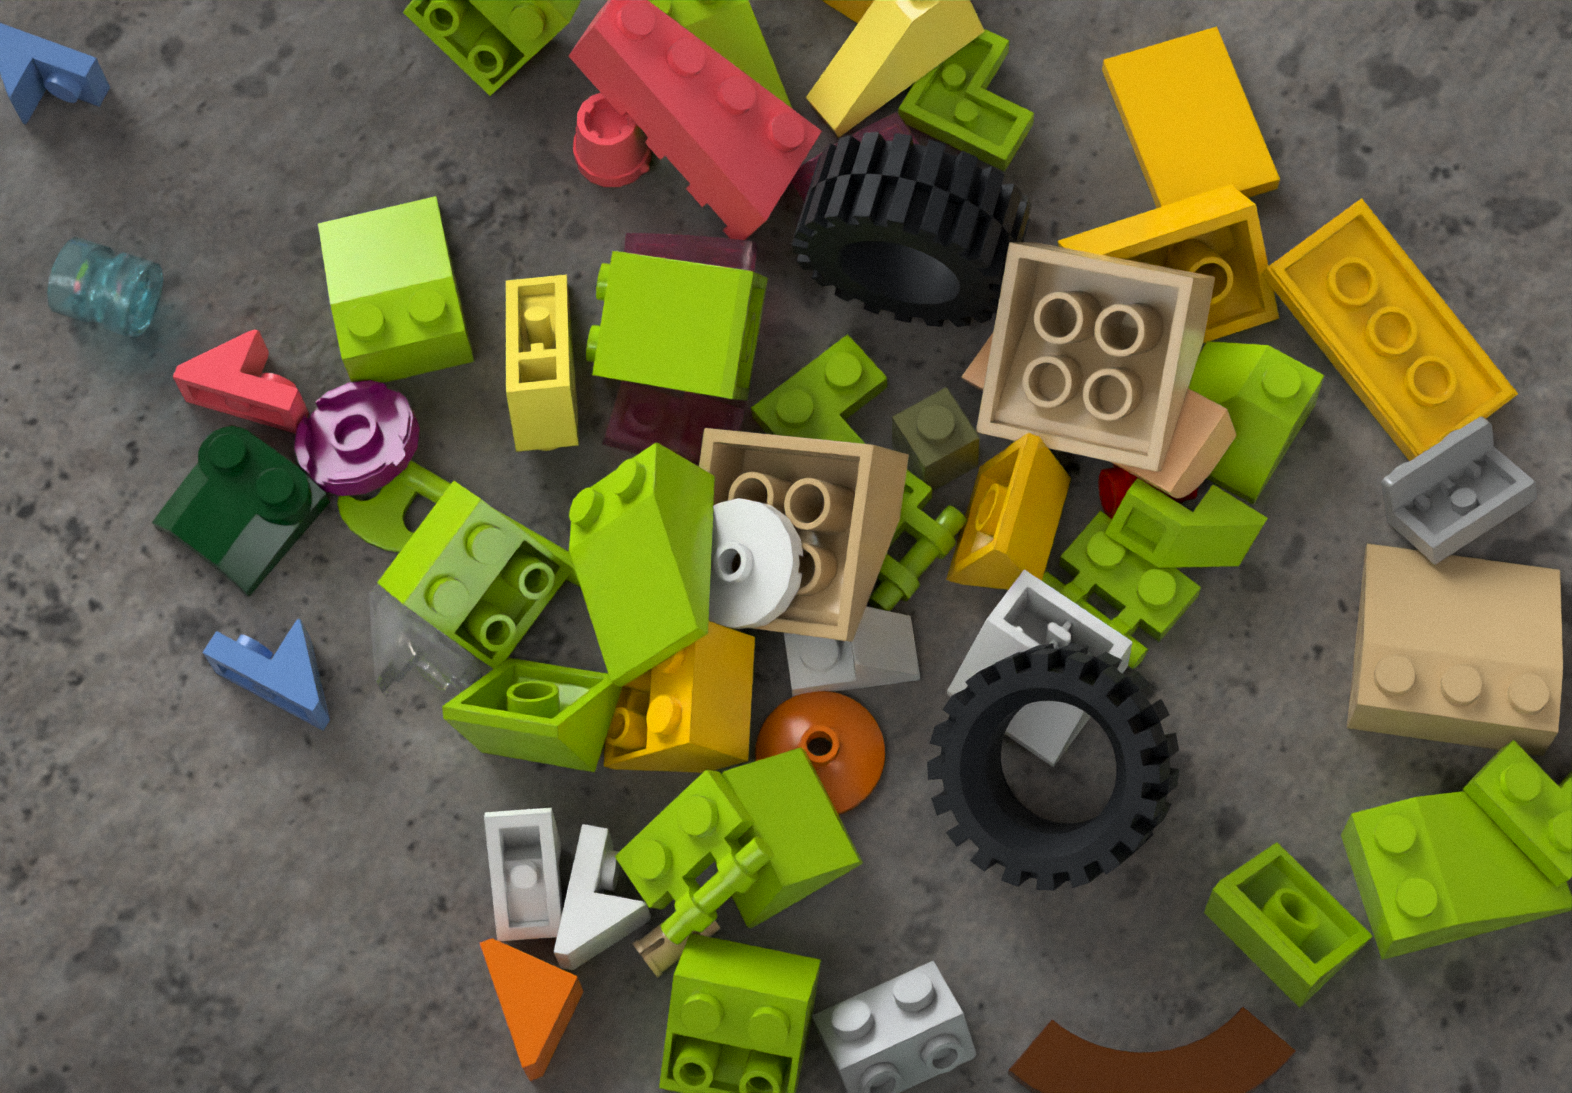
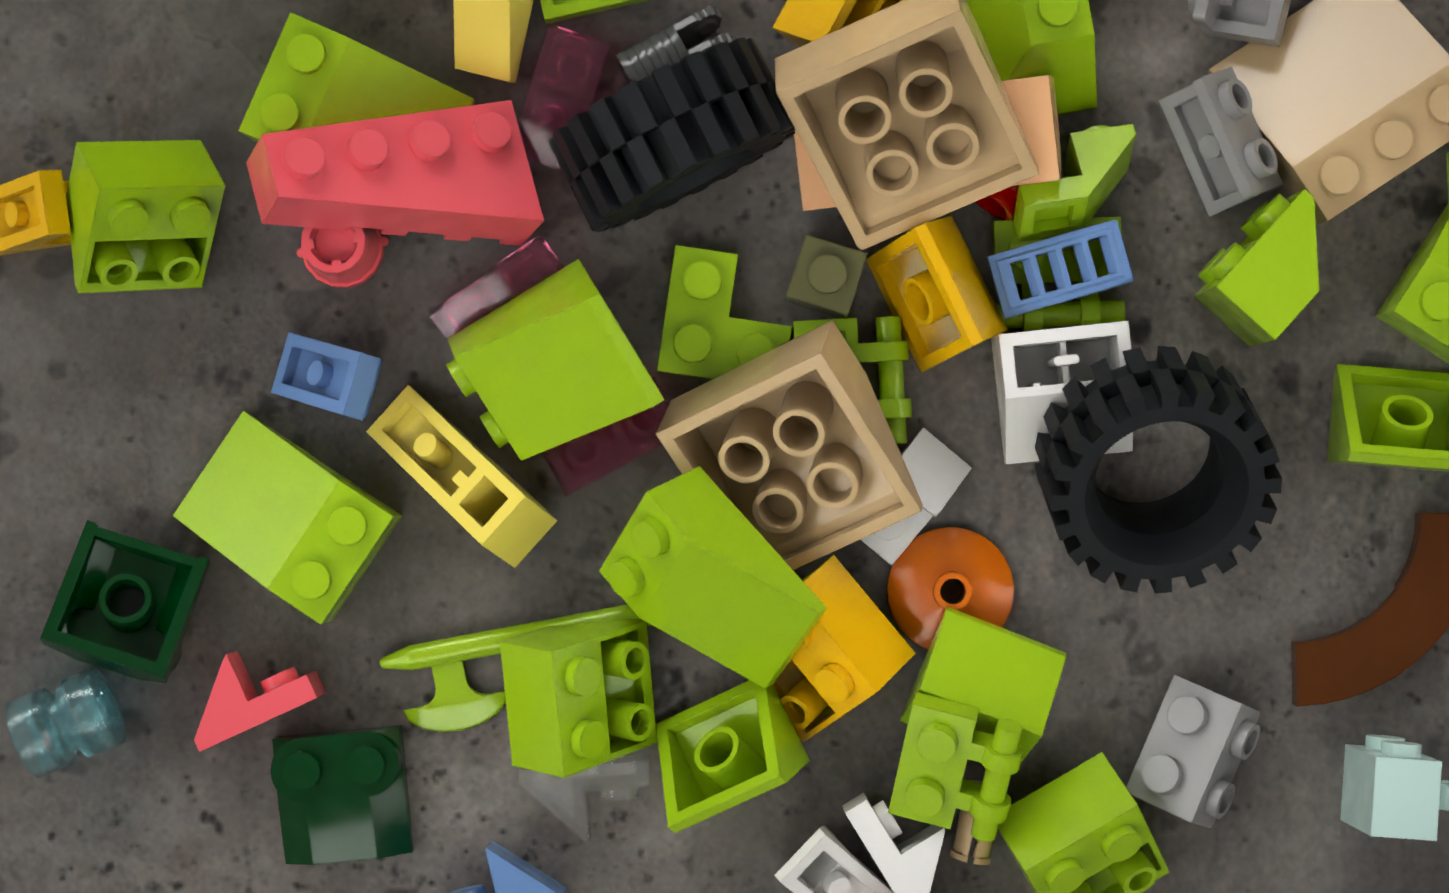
camera: 45 degrees left, 20 degrees up
(223, 246) = (125, 604): none -> dark green slope
(357, 438) = (380, 663): magenta tile -> none
(519, 222) = (327, 376): none -> medium blue slope
(768, 565) = (802, 495): white plate -> none
(1127, 603) = (1113, 252): none -> medium blue slope
(1273, 702) = (1269, 275): none -> lime slope
(1328, 591) = (1221, 141): none -> light grey bracket

